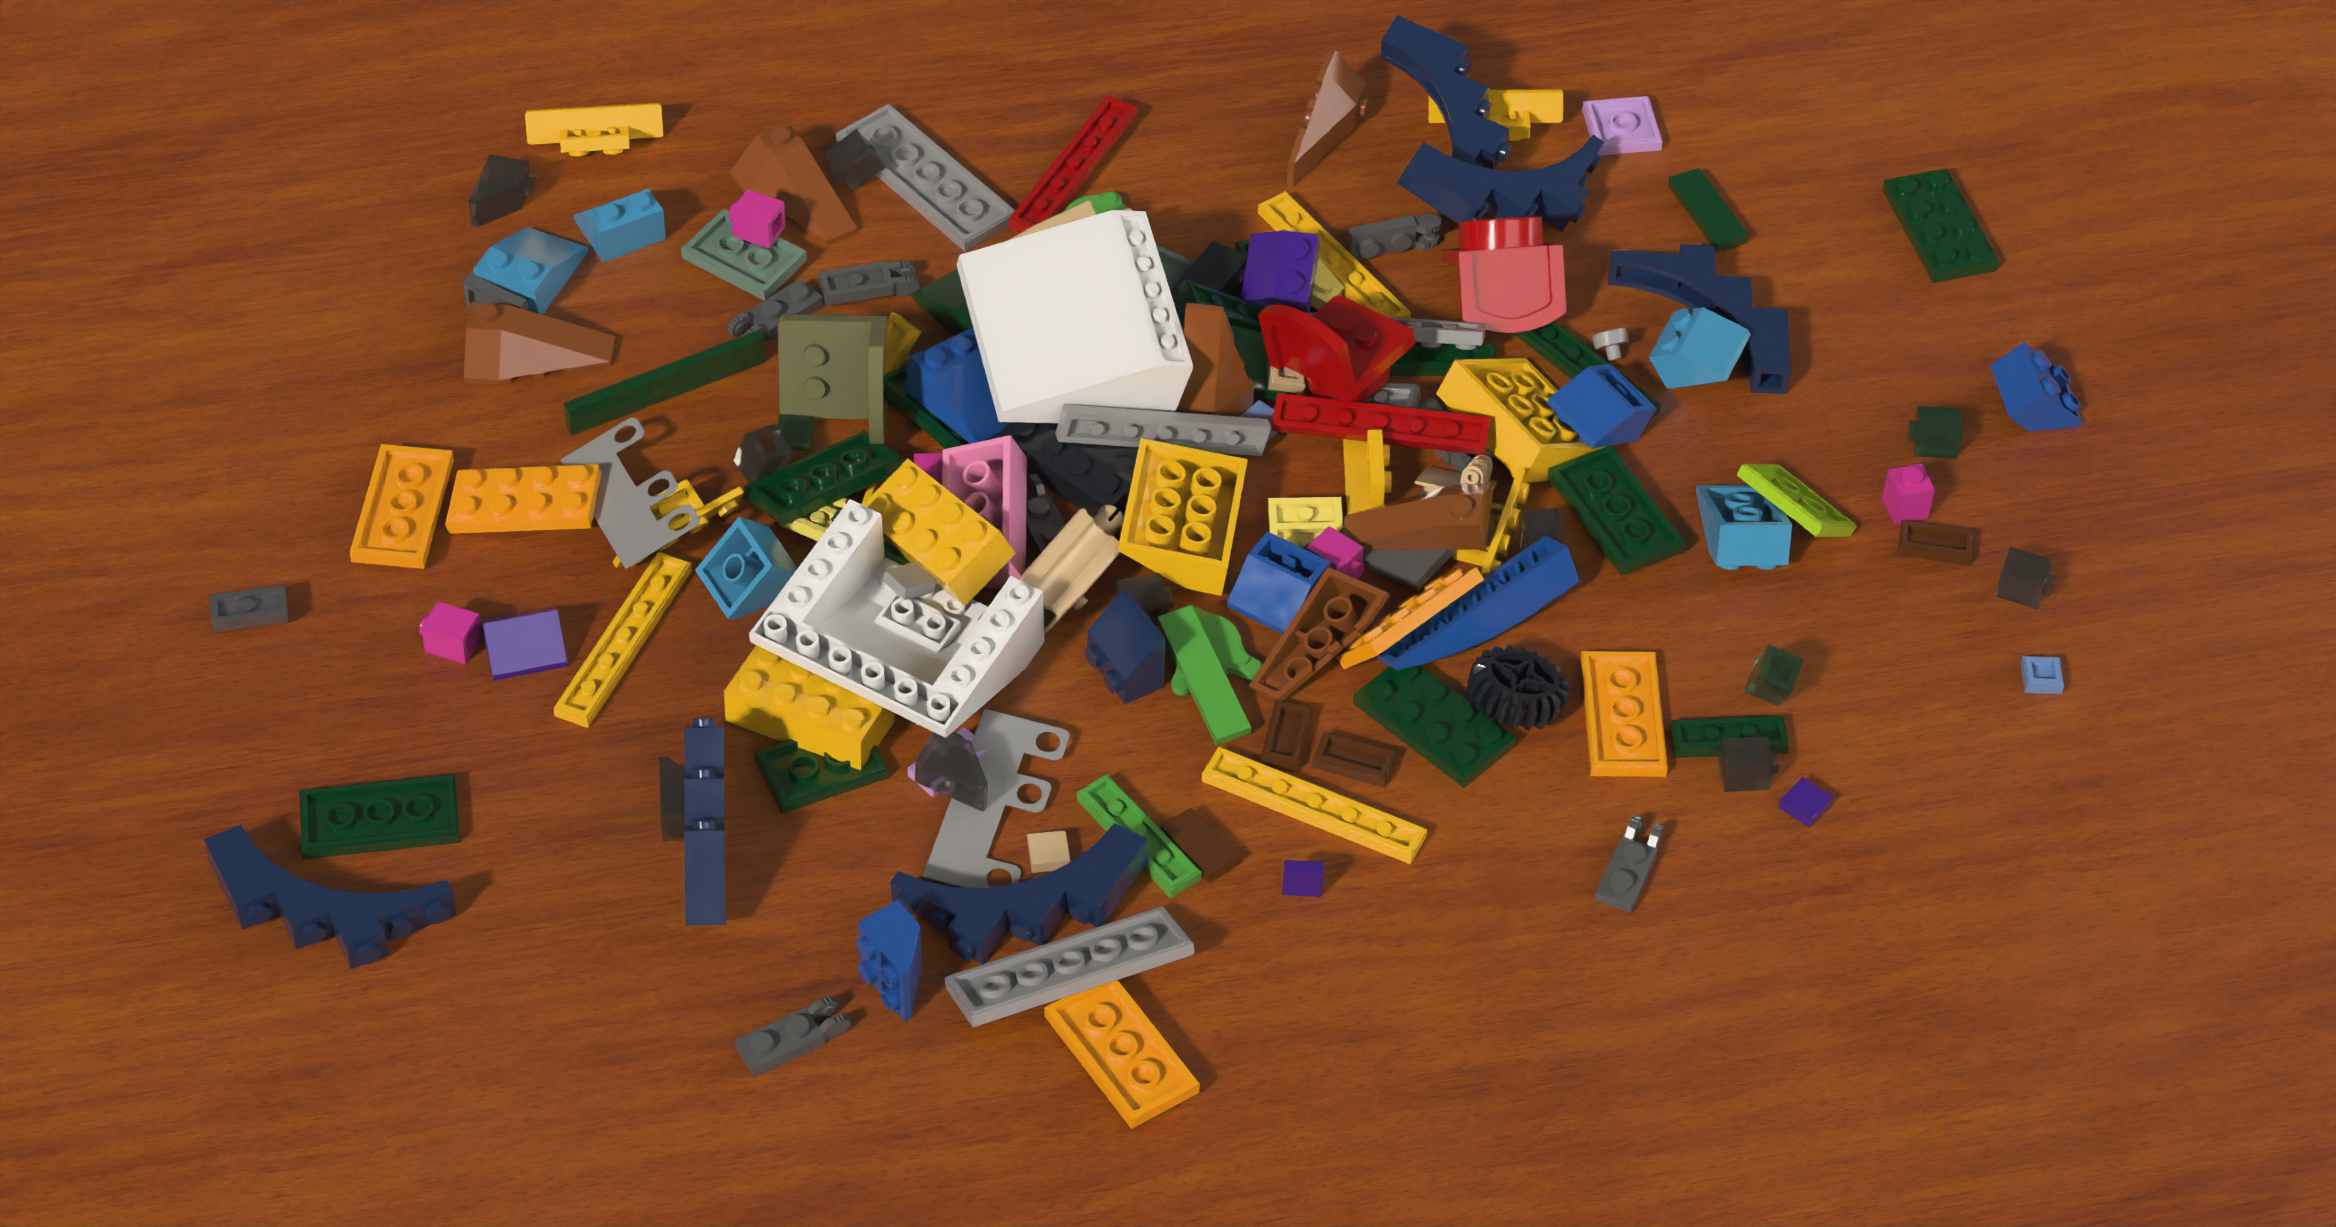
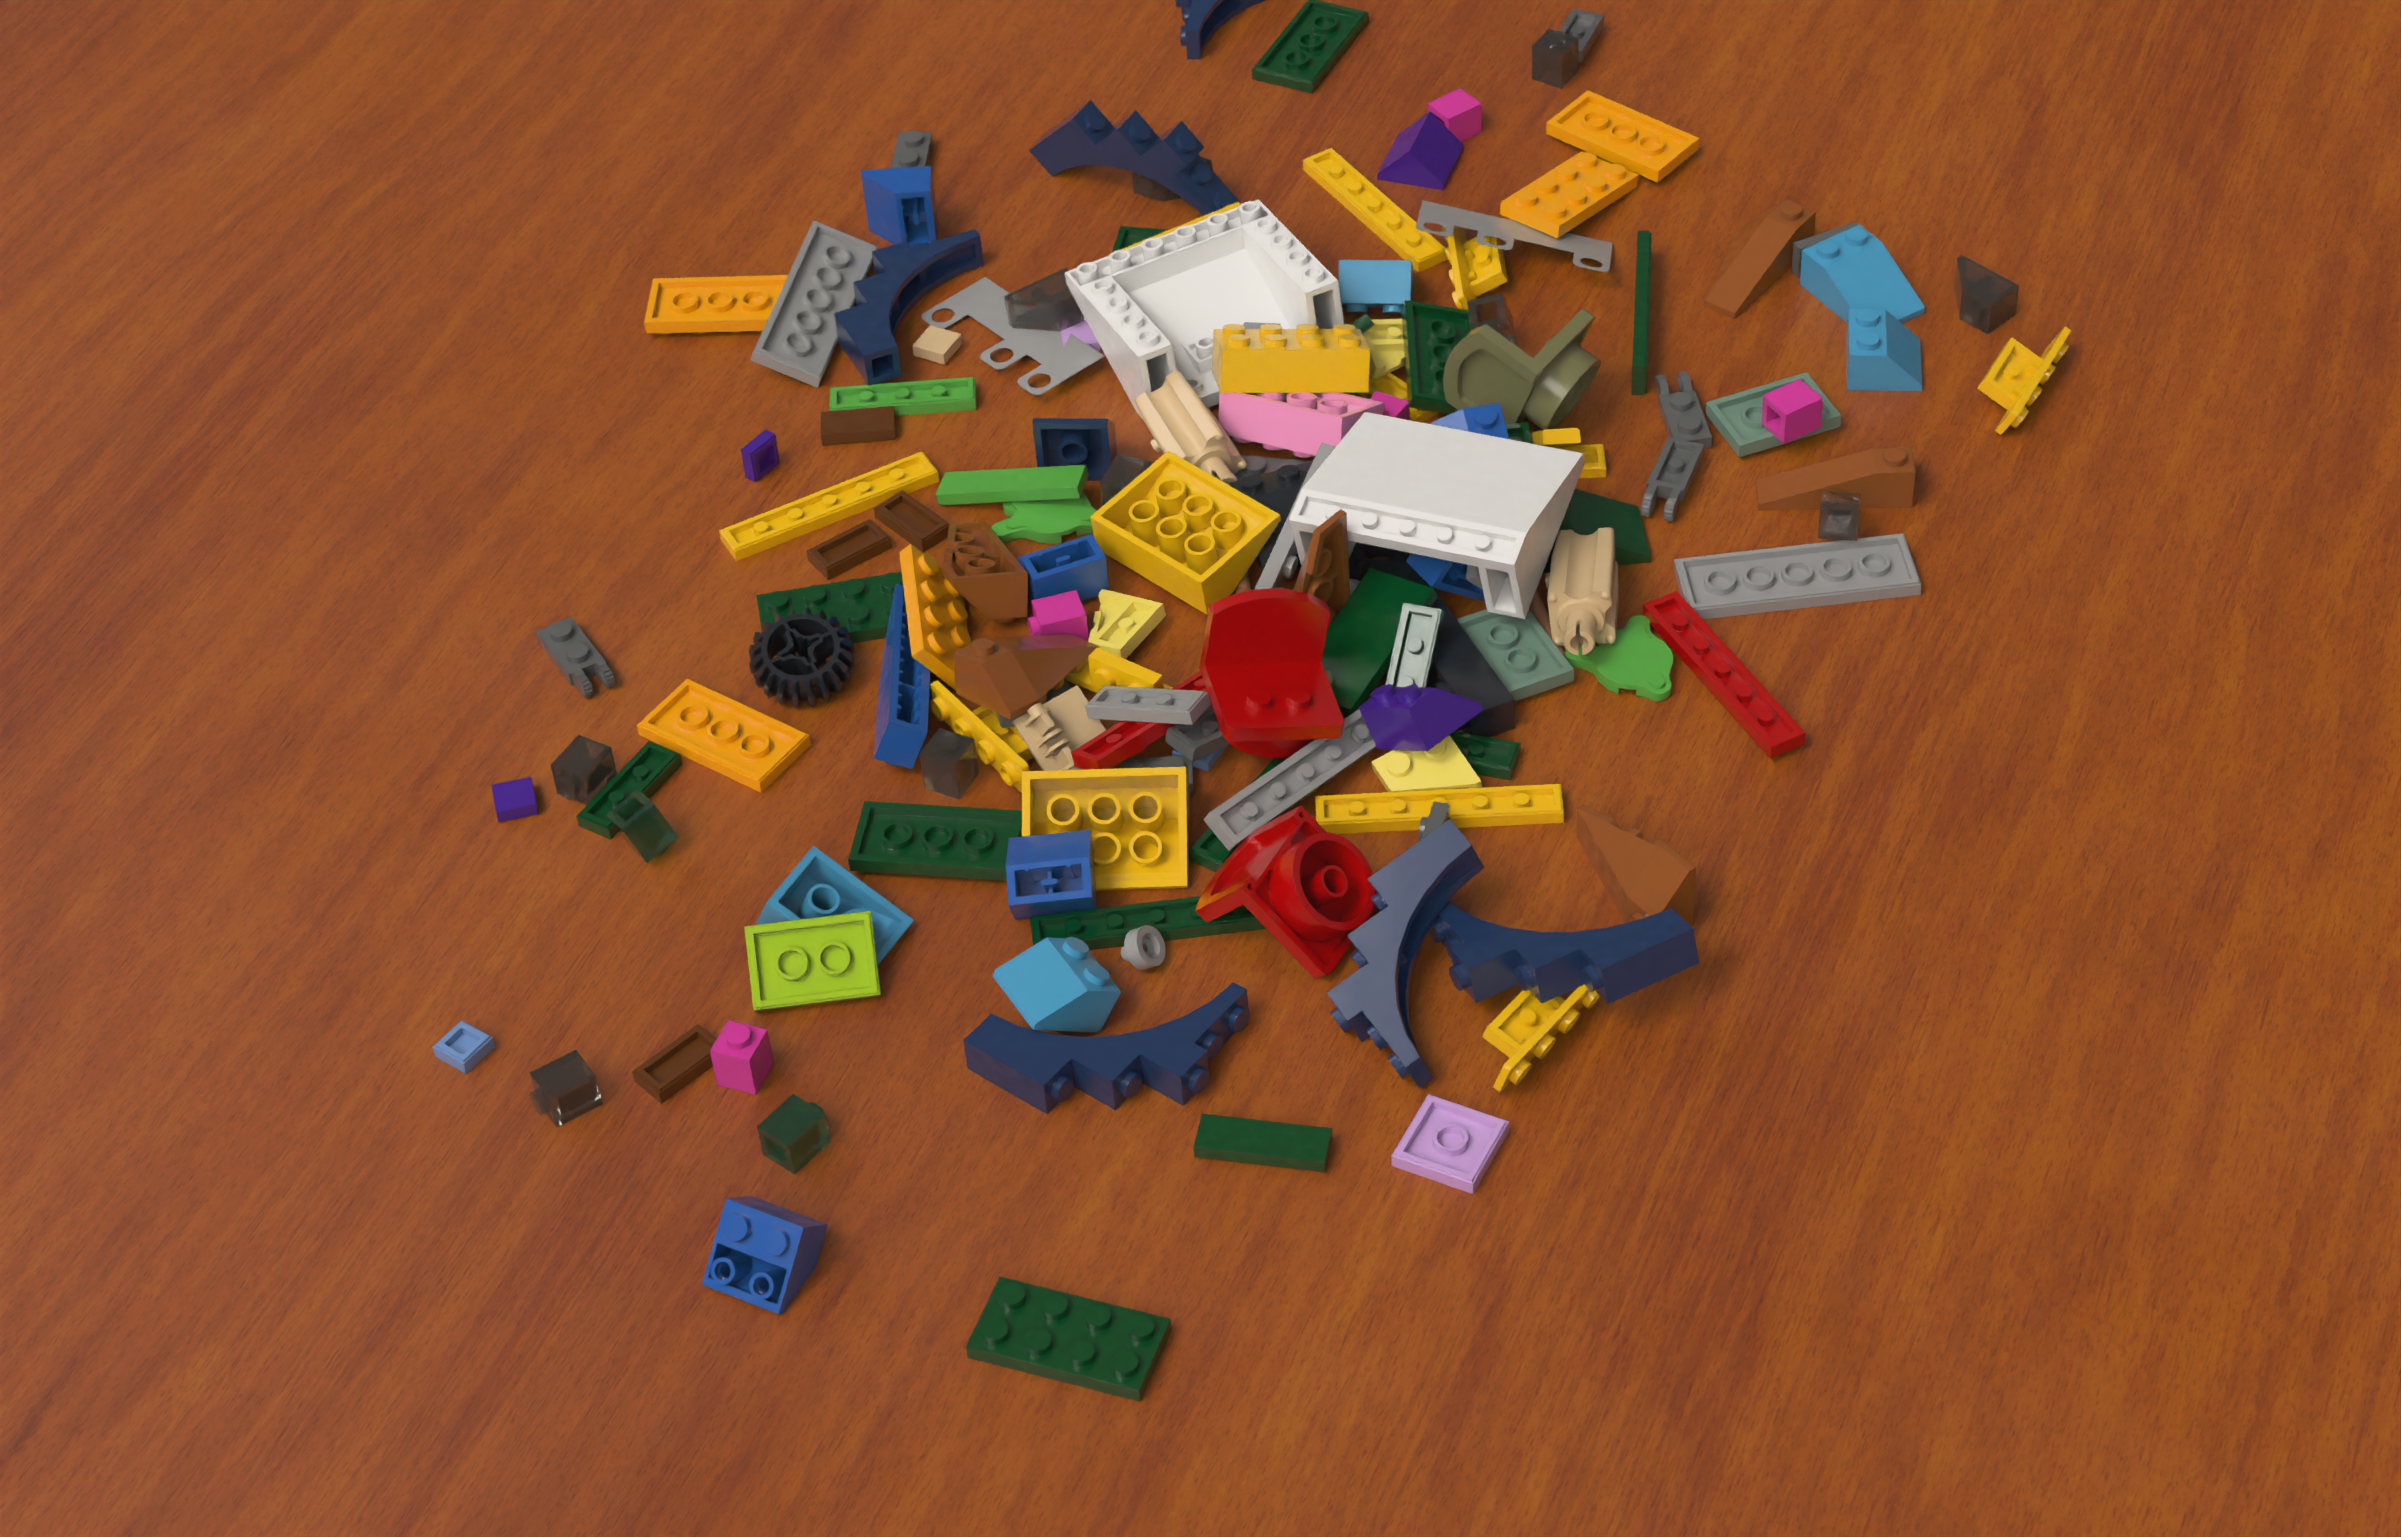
camera: 130 degrees right, 5 degrees down
(309, 598) = (1555, 58): none -> clear smoke brick
(1403, 425) = (1148, 705): none -> light grey tile

